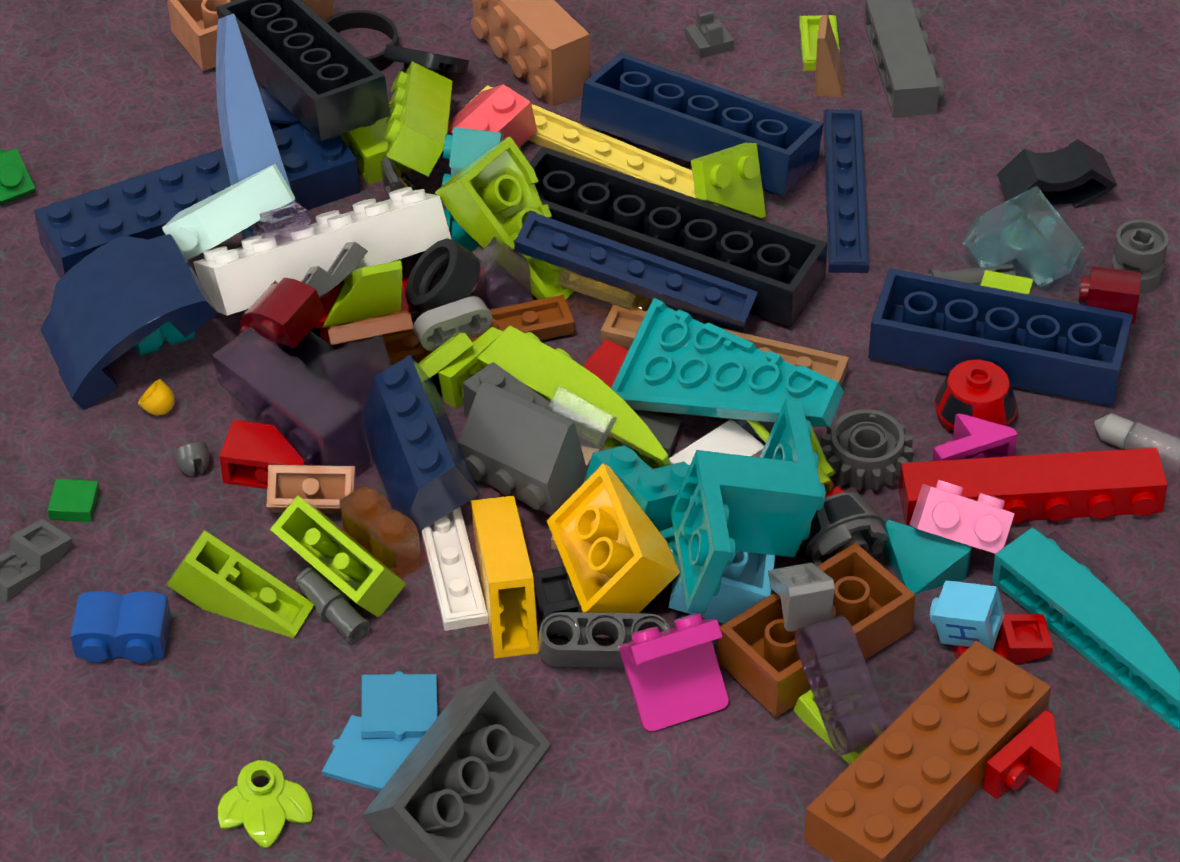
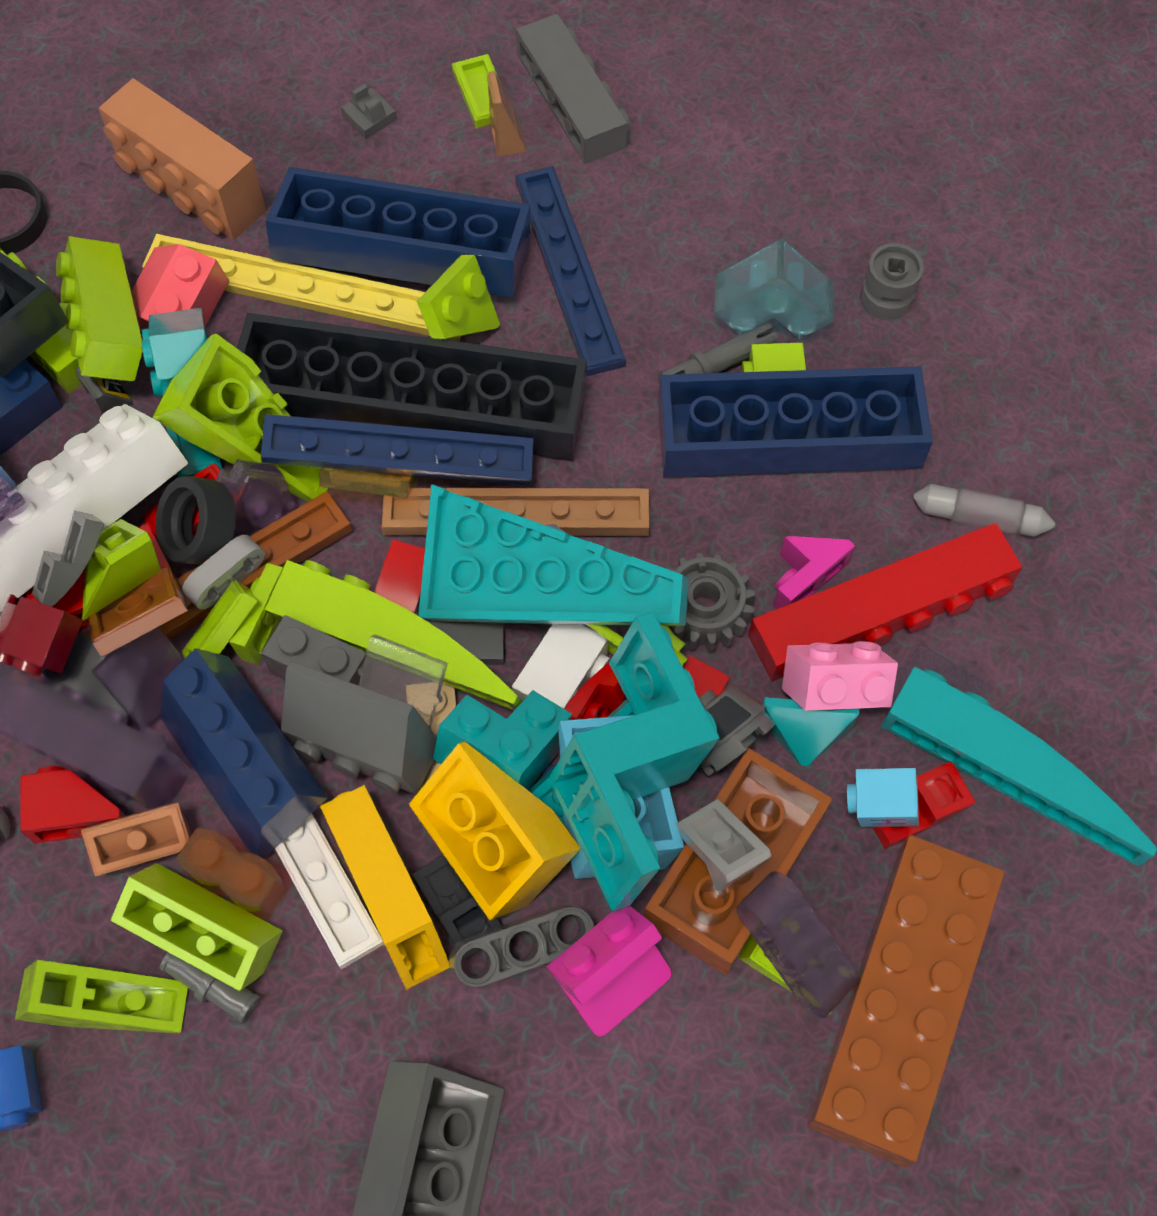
camera: 20 degrees left, 20 degrees up
(366, 760) = (317, 1168): dark azure piece -> none
(398, 705) = (325, 1094): dark azure piece -> none
(426, 59) = (81, 221): black tile -> none
(978, 391) = (792, 503): red cone -> none
(1029, 753) = (1005, 943): red slope -> none
(1063, 176) = (767, 206): black brick -> none
(1111, 289) = (885, 339): dark red brick -> none

